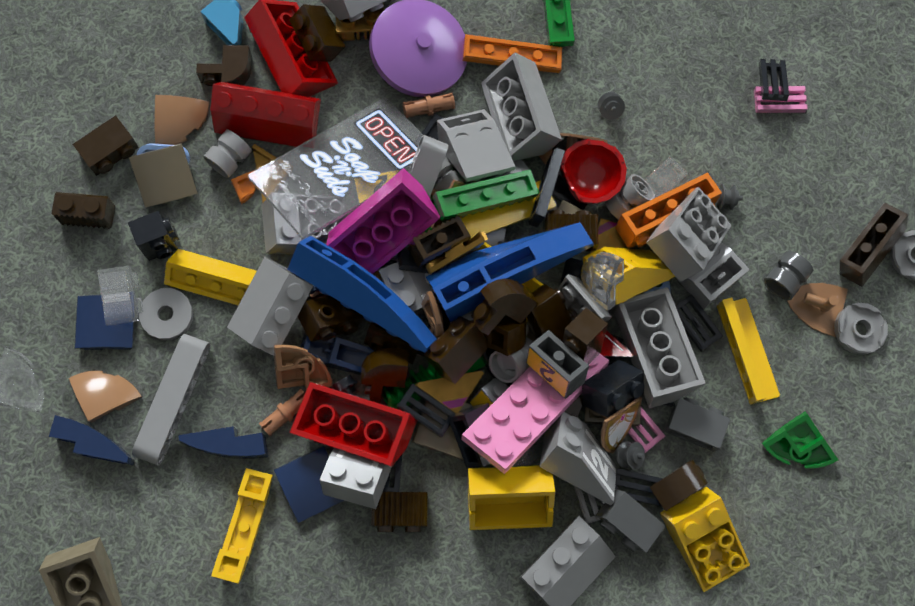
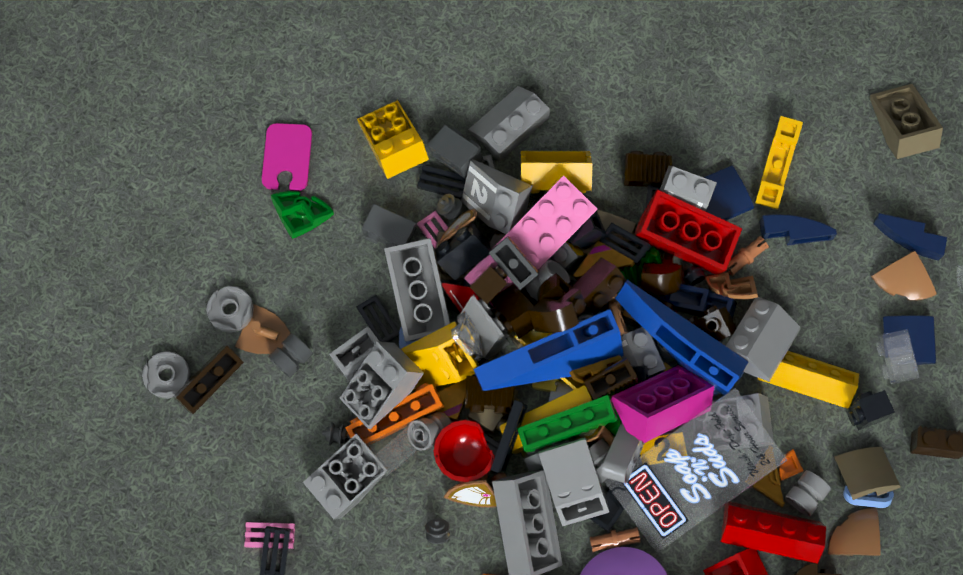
camera: 170 degrees left, 0 degrees up
(106, 146) = (923, 506): dark brown piece -> none
(170, 399) = (845, 270): light grey beam -> none
(173, 327) = (842, 352): light grey tile -> none
(679, 485) = (410, 176): dark brown brick -> none
(715, 144) = (346, 477): none -> light grey slope
(747, 350) = (334, 294): yellow panel -> none
(828, 520) = (287, 150): none -> dark pink piece

